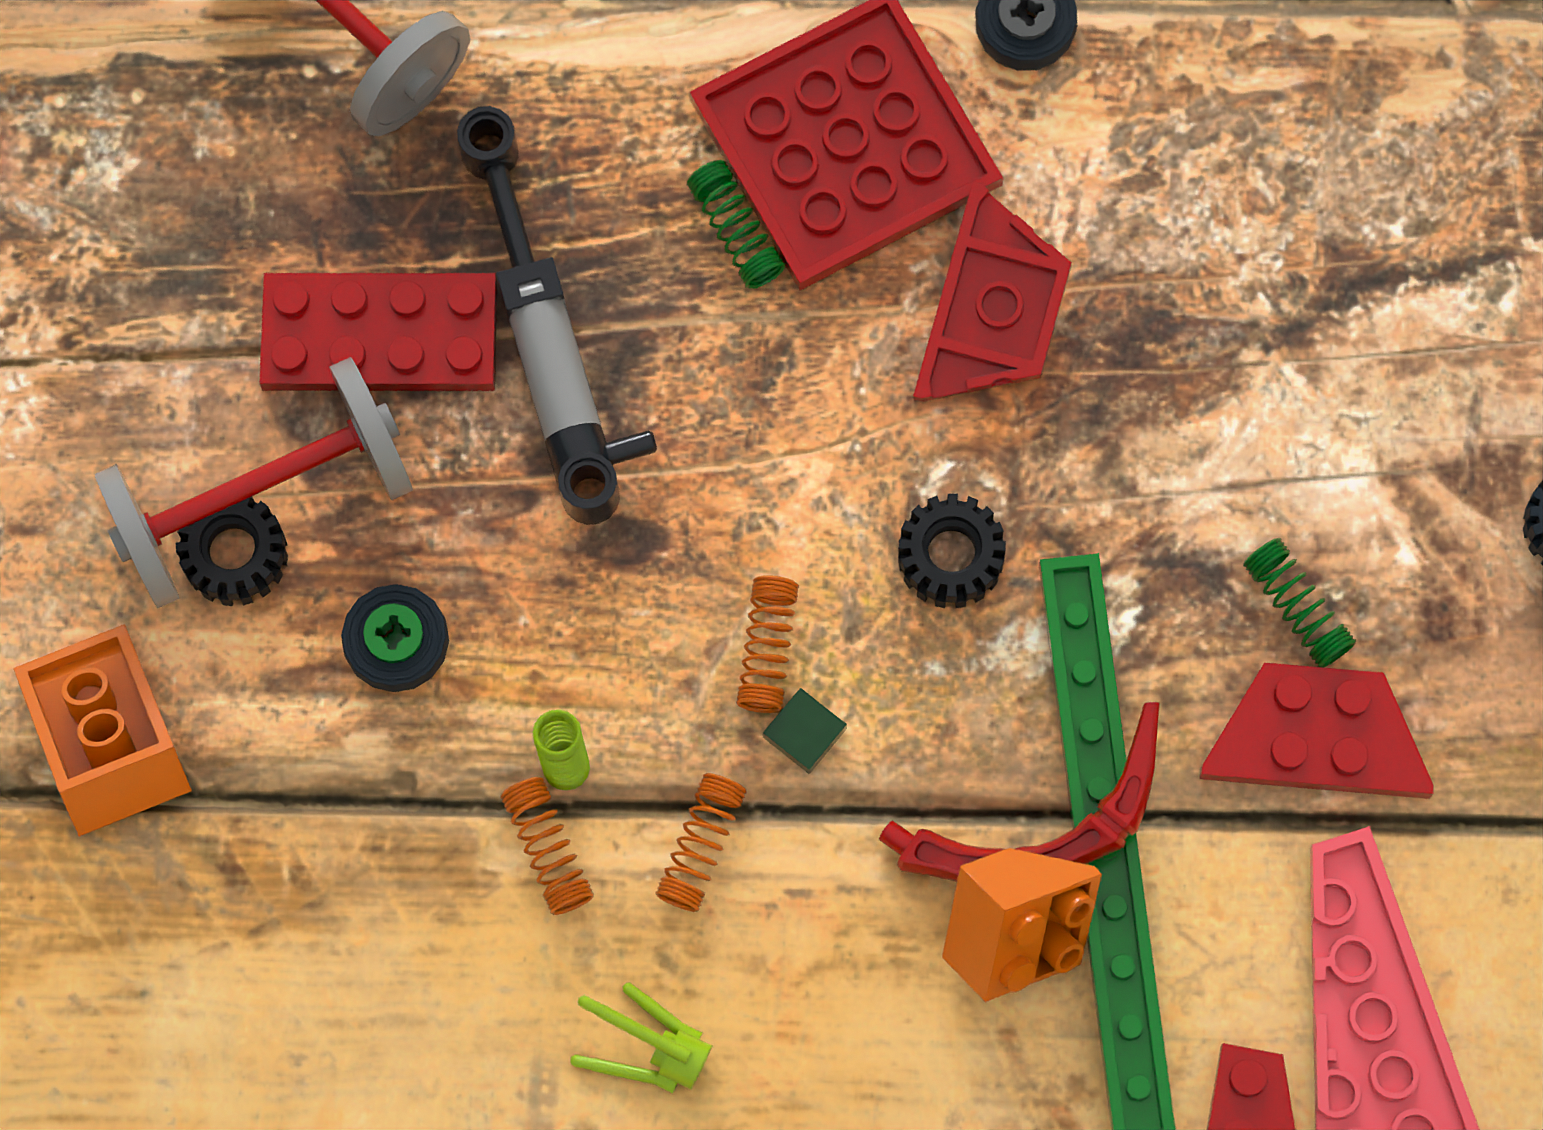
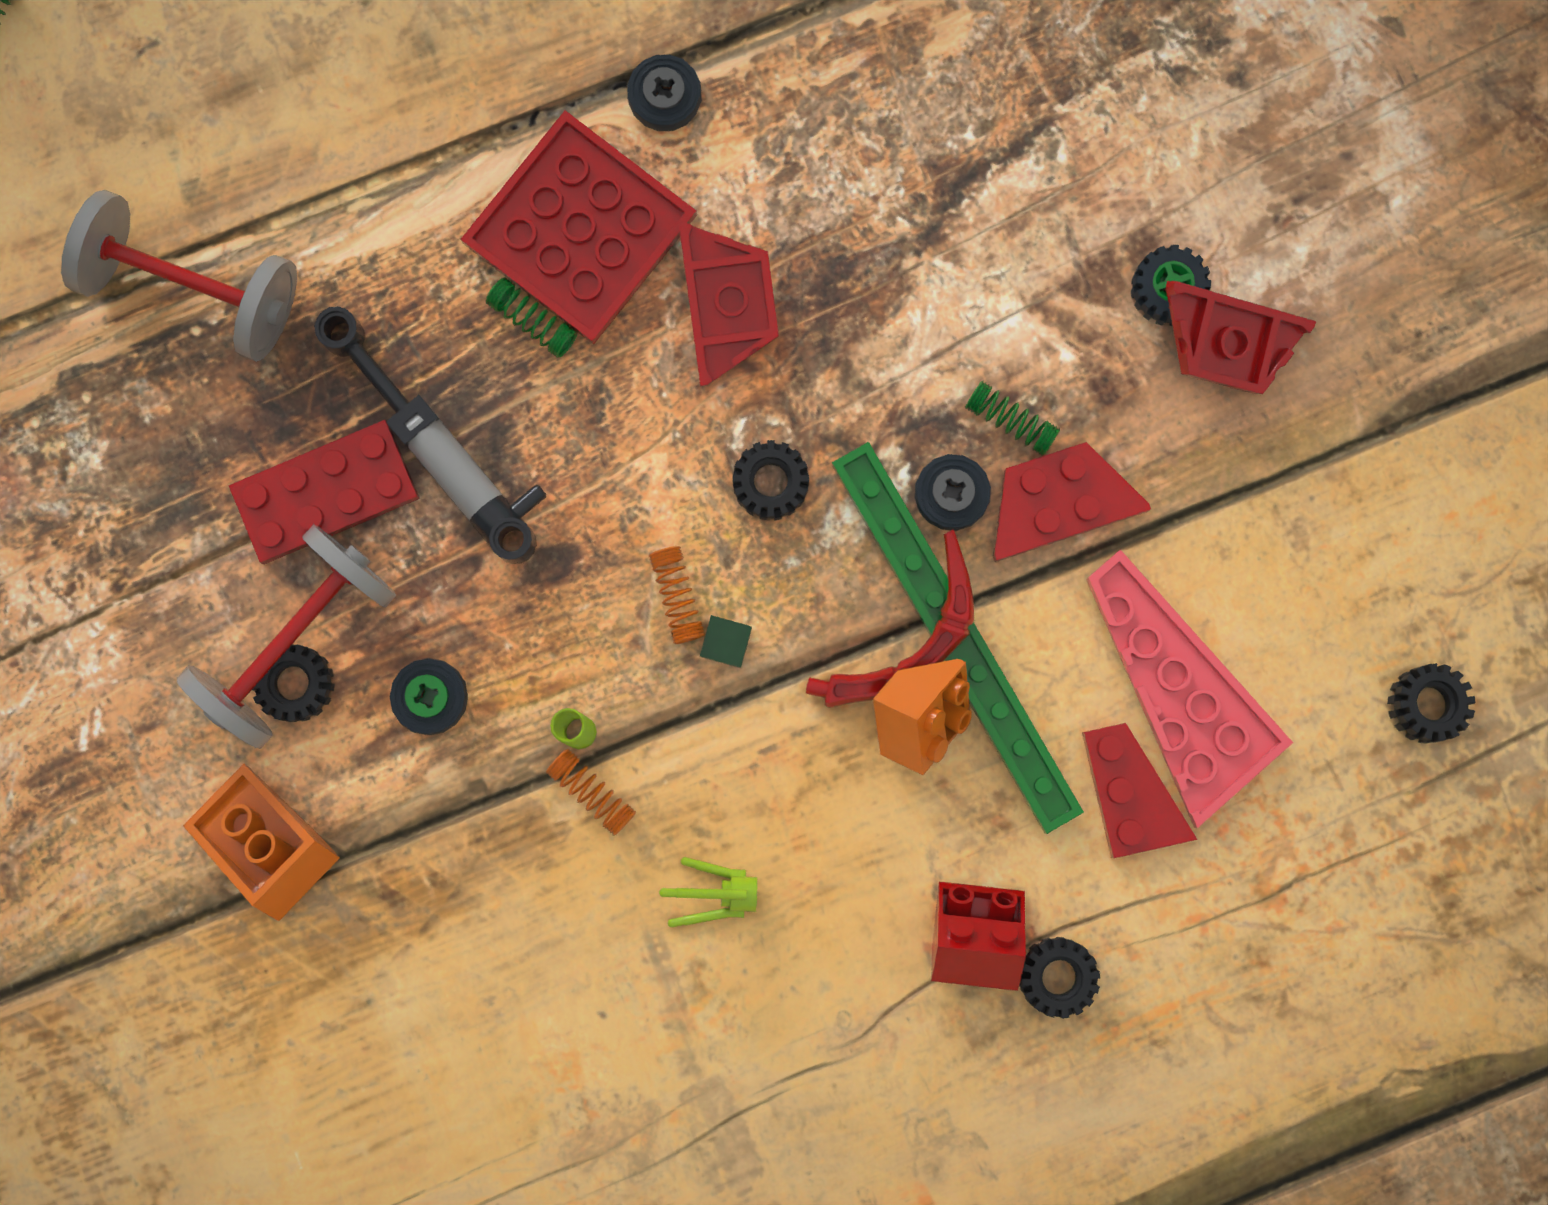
camera: 25 degrees left, 10 degrees up
(722, 792) = (685, 707): orange piece -> none
(1182, 685) = (940, 501): none -> black wheel

